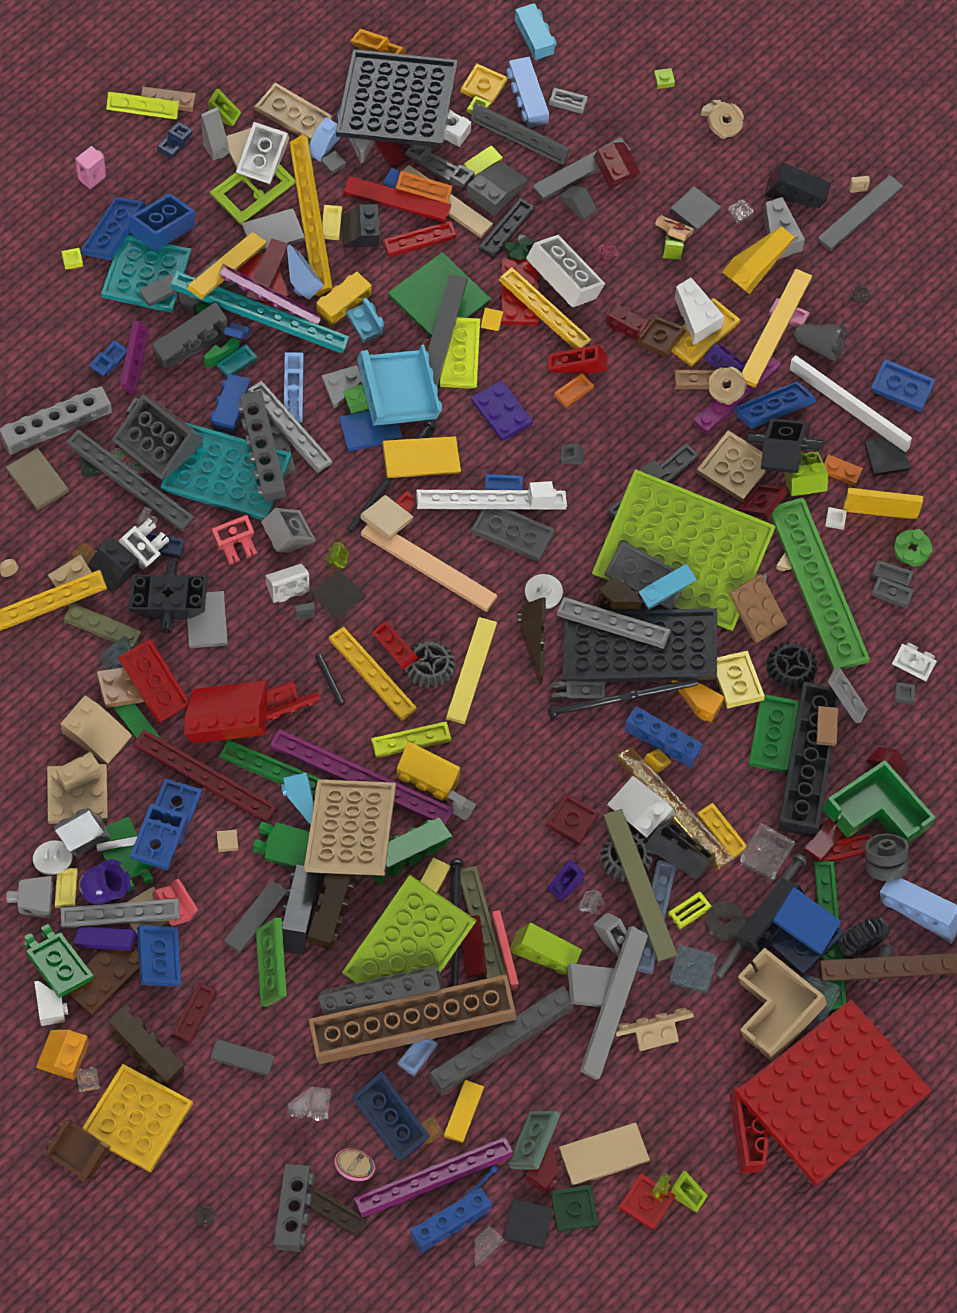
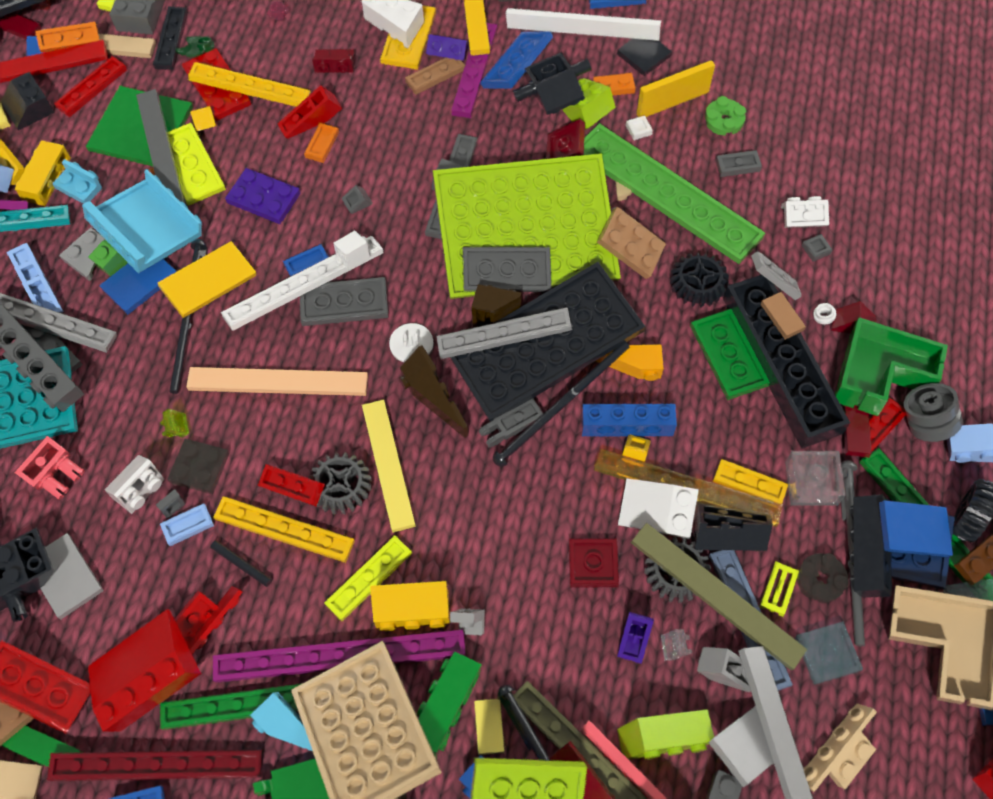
camera: 25 degrees left, 0 degrees up
(287, 530) = (104, 427): light grey slope -> none
(307, 632) = (186, 524): none -> light blue tile
(386, 517) = (205, 357): tan tile -> none
(406, 502) = (217, 333): red tile -> none
(439, 167) = (53, 16): dark grey slope -> none
(565, 271) = (248, 42): white brick -> none
(660, 336) = (373, 55): reddish brown tile -> none
(667, 586) = (535, 268): medium azure slope -> none
(730, 394) = (465, 72): tan plate -> none
(733, 466) = (517, 130): tan plate -> none
(738, 680) = (664, 321): light yellow plate -> none
(869, 741) = (824, 308): none -> white plate
(892, 573) = (722, 147): dark grey tile -> none

